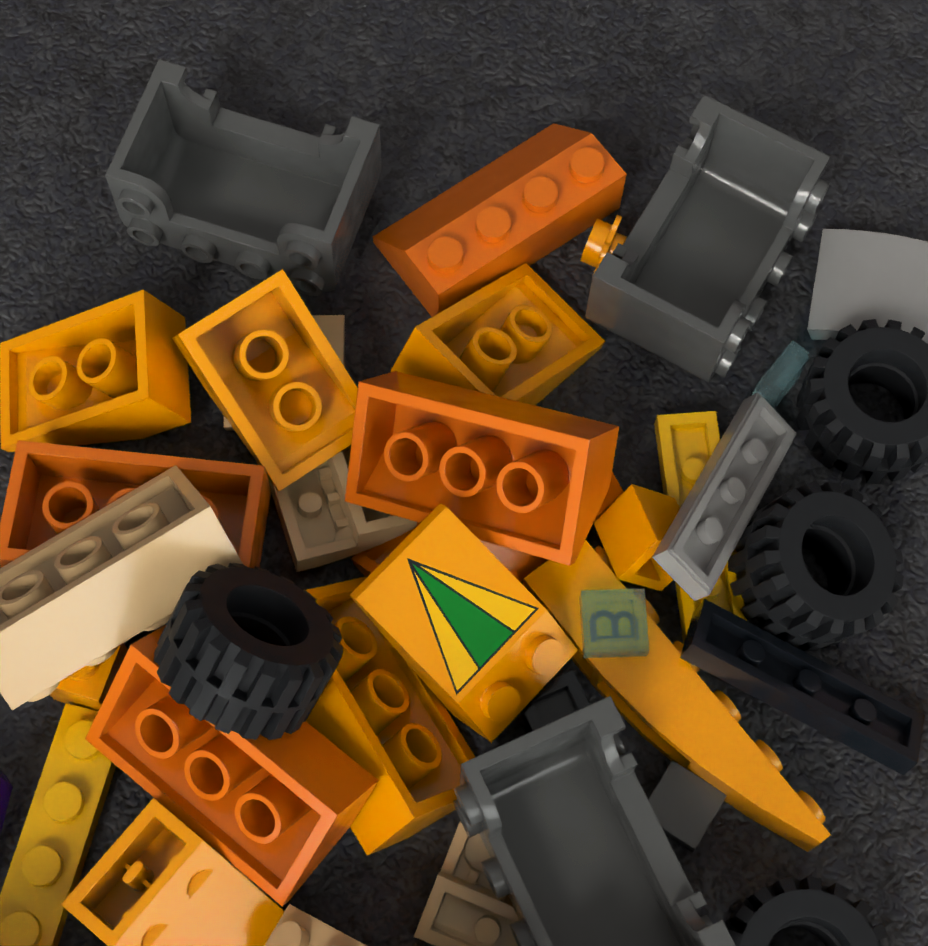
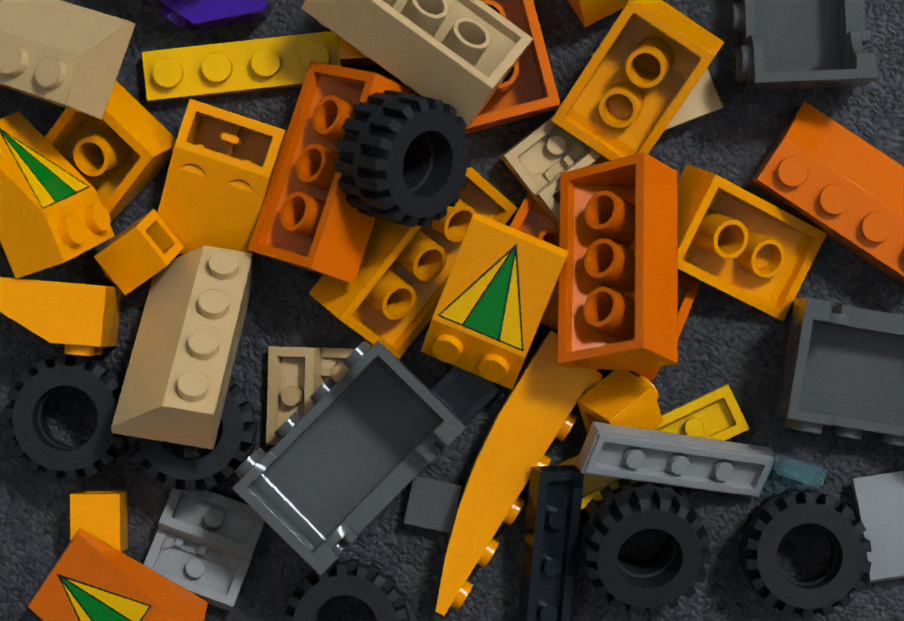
camera: 70 degrees right, 20 degrees up
(602, 240) = (863, 291): light orange plate -> none
(614, 623) = (539, 409): clear light blue tile -> none

